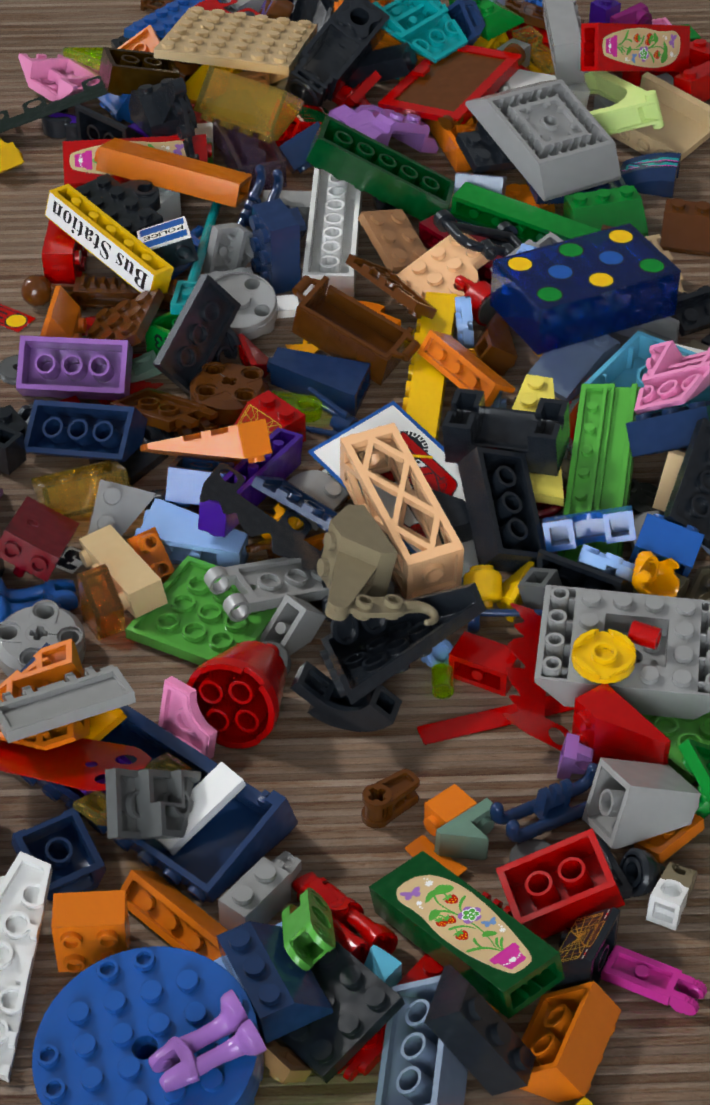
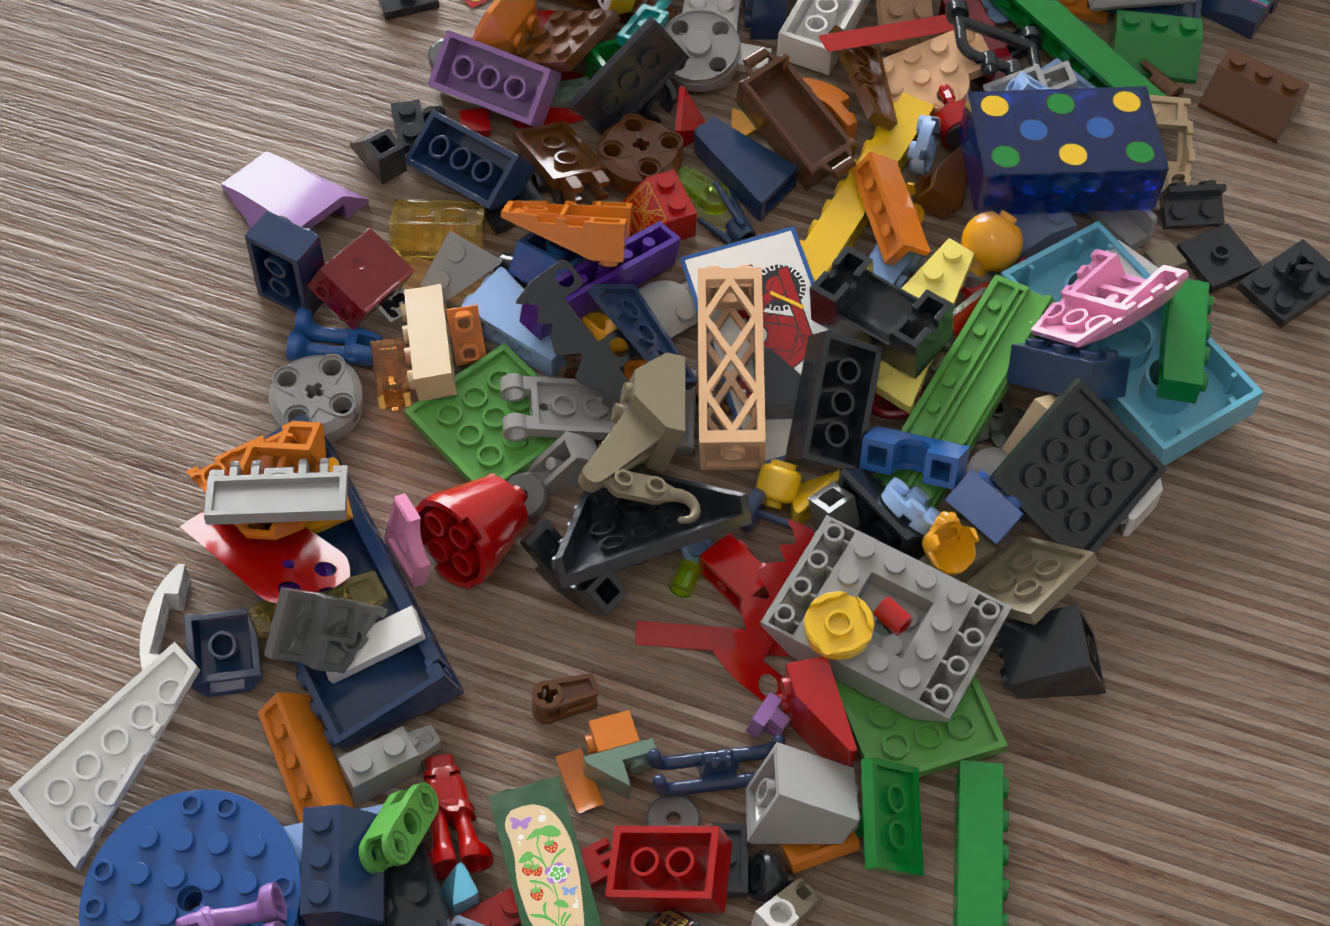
camera: 20 degrees right, 15 degrees up
(89, 927) = (209, 746): orange brick -> none
(395, 250) = (885, 33): none -> red sticker
(563, 364) = (993, 240): none -> light orange brick

